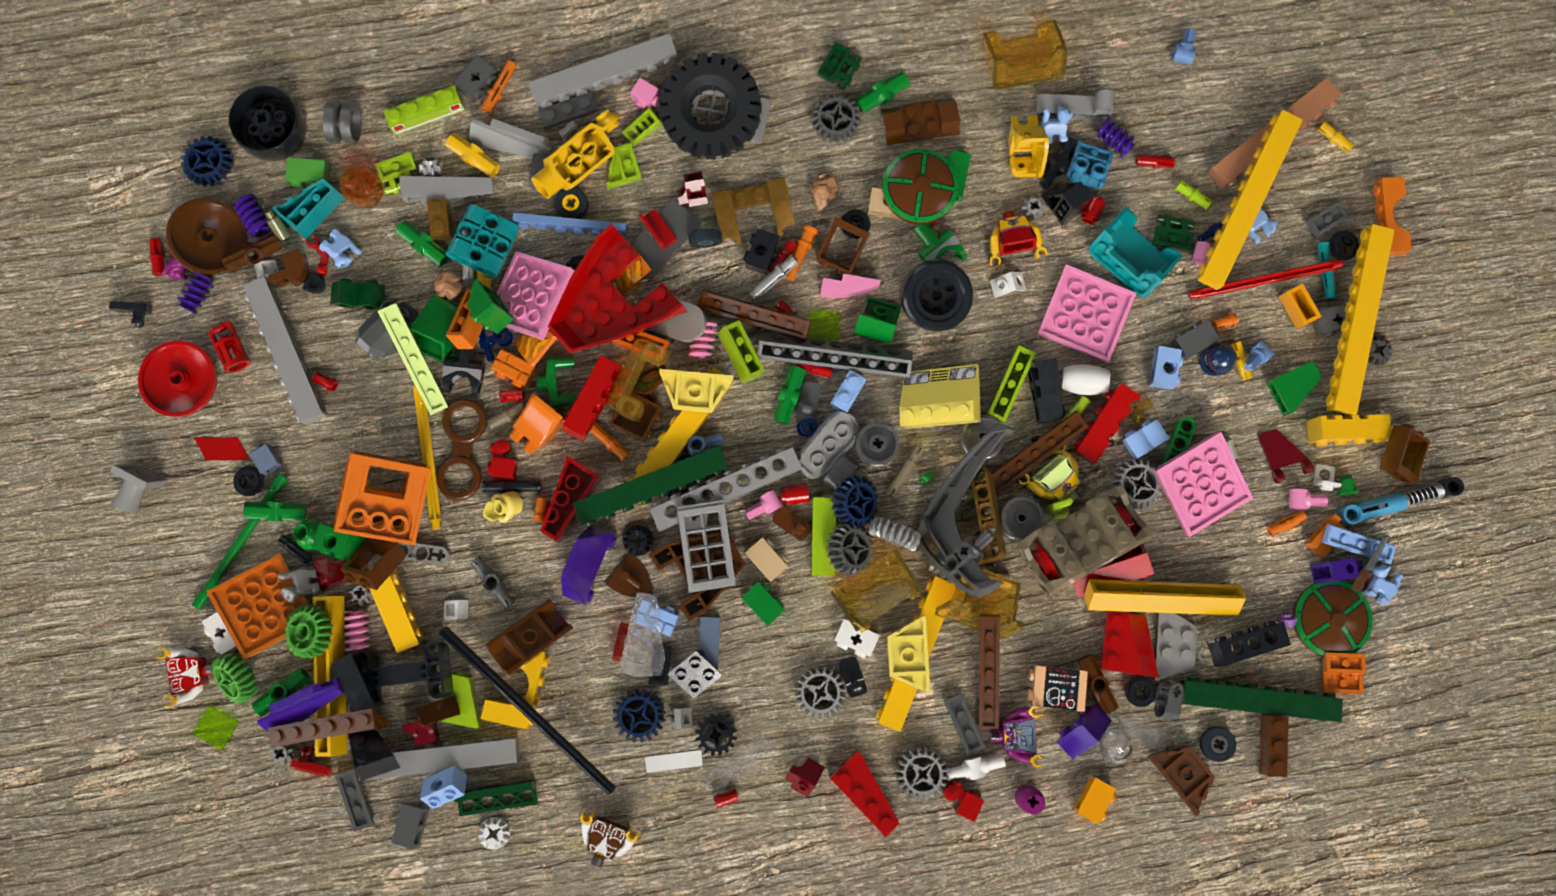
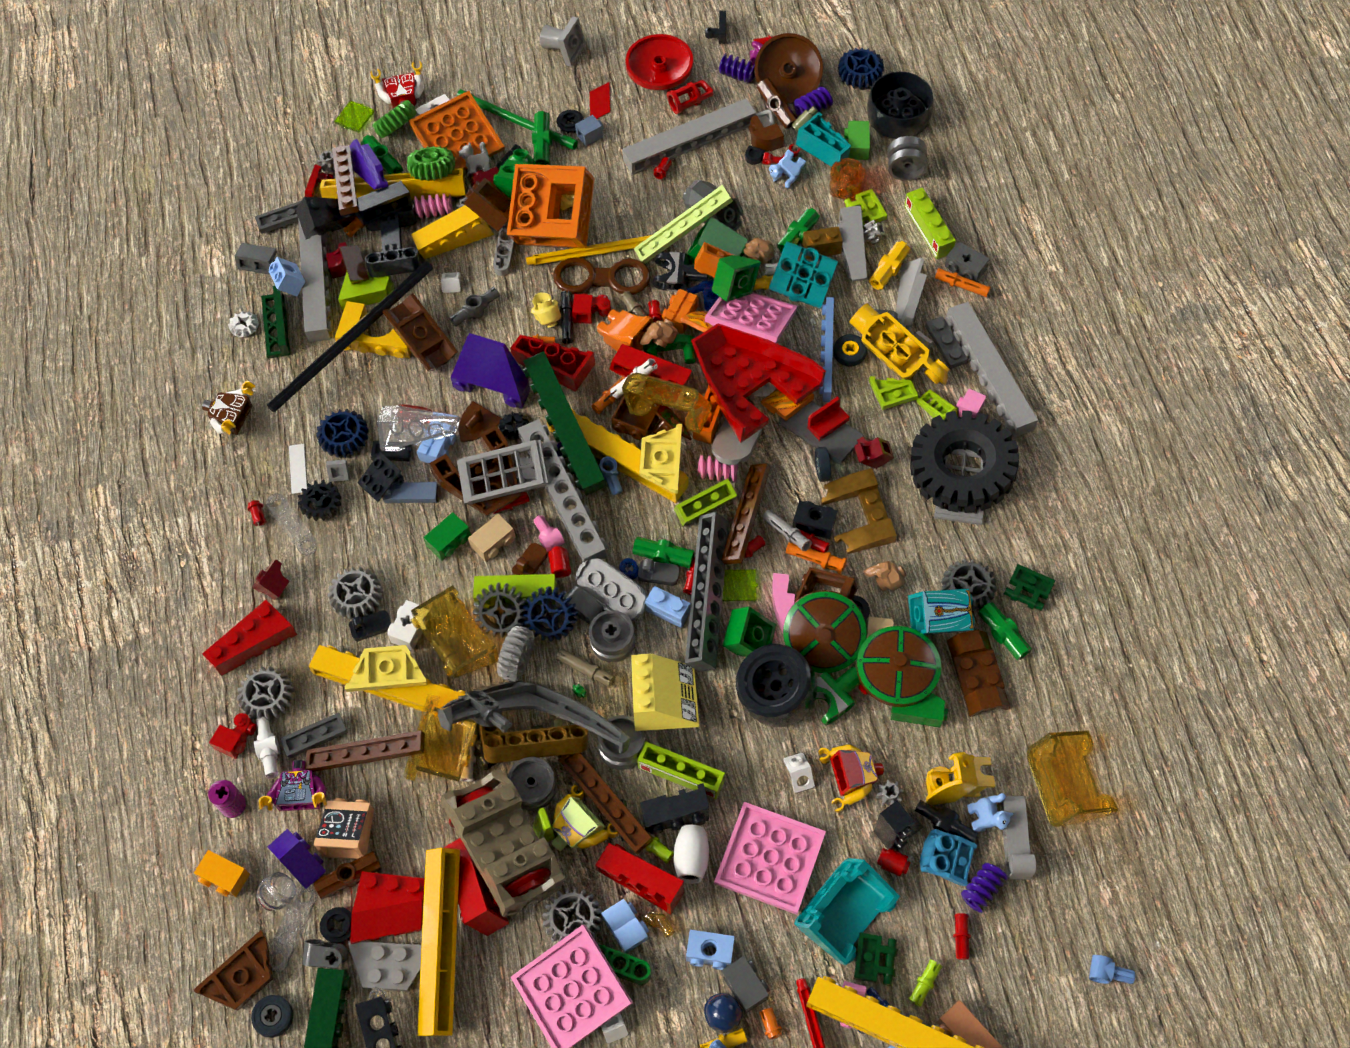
camera: 90 degrees right, 20 degrees down
(352, 295) = (744, 183): dark green brick -> none
(550, 387) = (660, 332): none -> medium nougat head
(604, 408) = (645, 368): none -> white pin
(869, 145) = (941, 611): none -> teal slope
(884, 248) = (825, 630): none -> reddish brown dish

